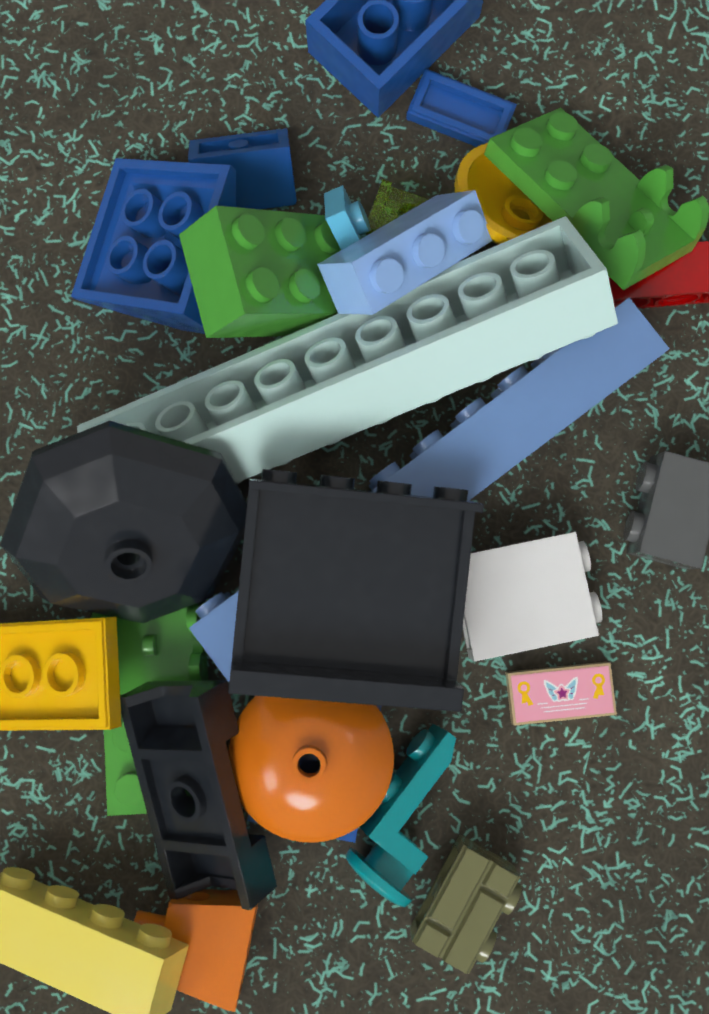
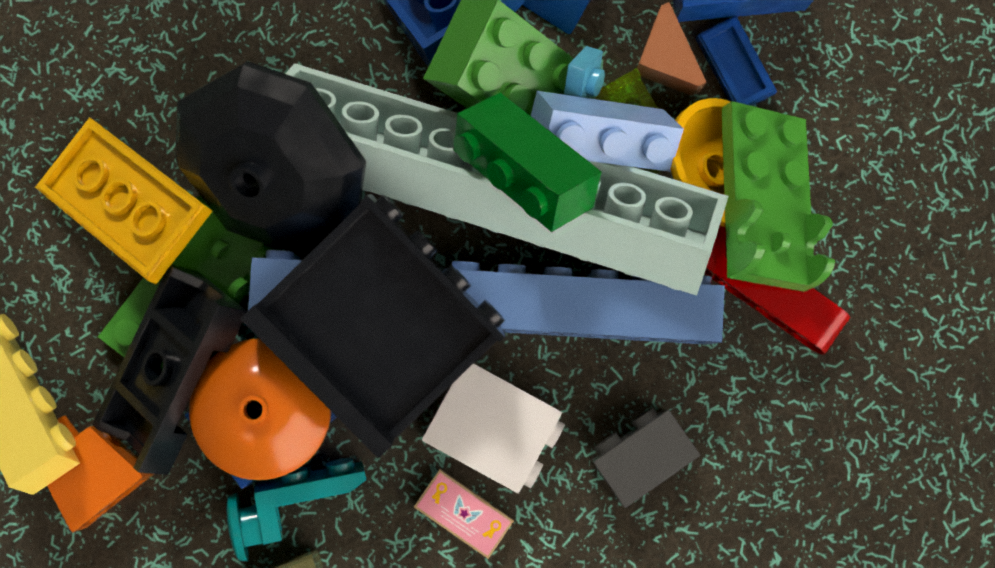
camera: 35 degrees right, 0 degrees up
(368, 328) = (526, 161): none -> green brick
(398, 147) = (669, 57): none -> nougat slope

